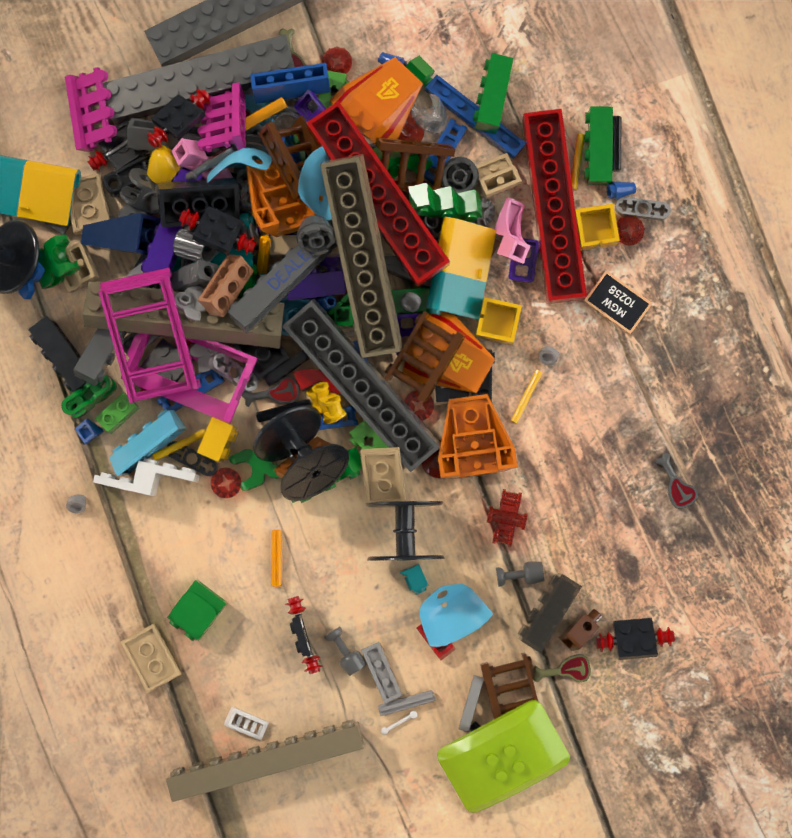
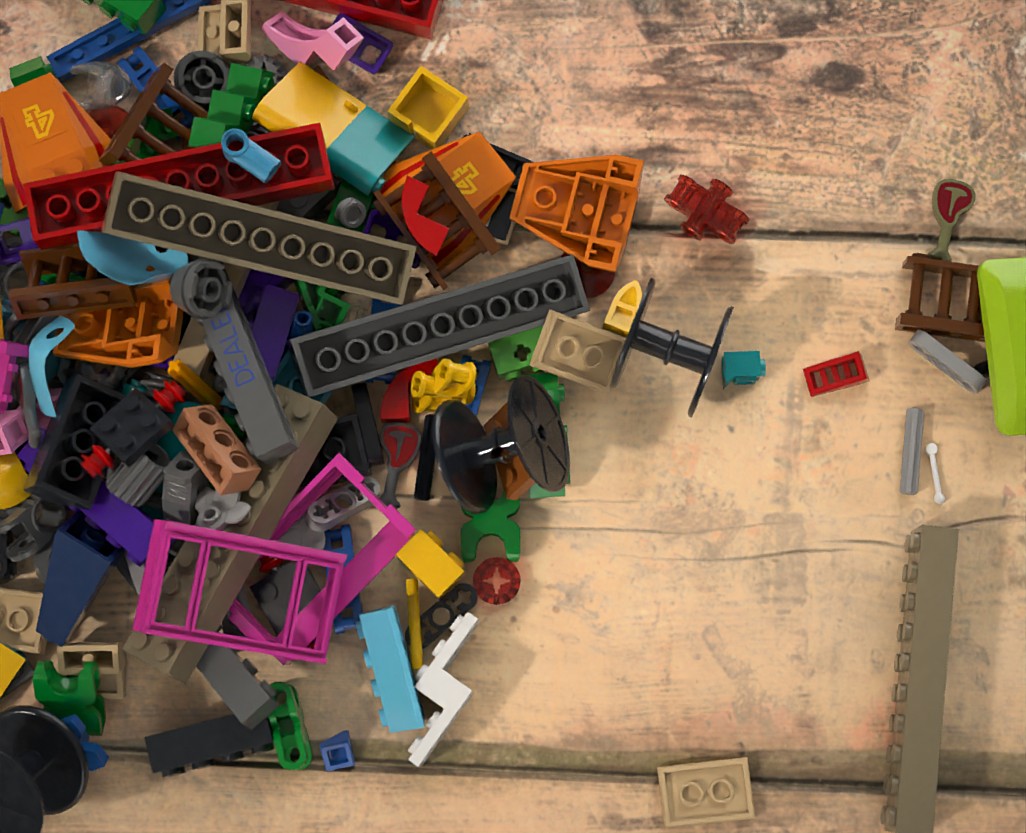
camera: 65 degrees left, 5 degrees down
(76, 504) = (437, 811): light grey tile -> none
(117, 413) = (330, 696): bright green brick -> none
(196, 610) = (665, 696): green brick -> none
(228, 723) = (835, 708): white slope -> none
(276, 558) = (634, 552): light orange axle -> none
(302, 645) = (772, 559): plate -> none
(352, 660) = (823, 502): dark grey piece -> none
(381, 672) = (855, 468): light grey plate -> none
(409, 230) = (251, 156): none -> dark azure piece
(413, 351) = (425, 231): none -> red brick
(423, 492) = (623, 309): none -> yellow plate
(428, 406) = (486, 264): clear red gear -> none
(460, 617) = (822, 334): medium azure piece -> none
(526, 396) = (547, 116): yellow bar -> none
(531, 571) = (797, 205): dark grey piece -> none
(548, 355) = (504, 63): light grey tile -> none
(549, 612) = (862, 201): clear smoke brick -> none
(575, 636) = (904, 171): reddish brown torso -> none
(635, 639) = (943, 104): black plate -> none

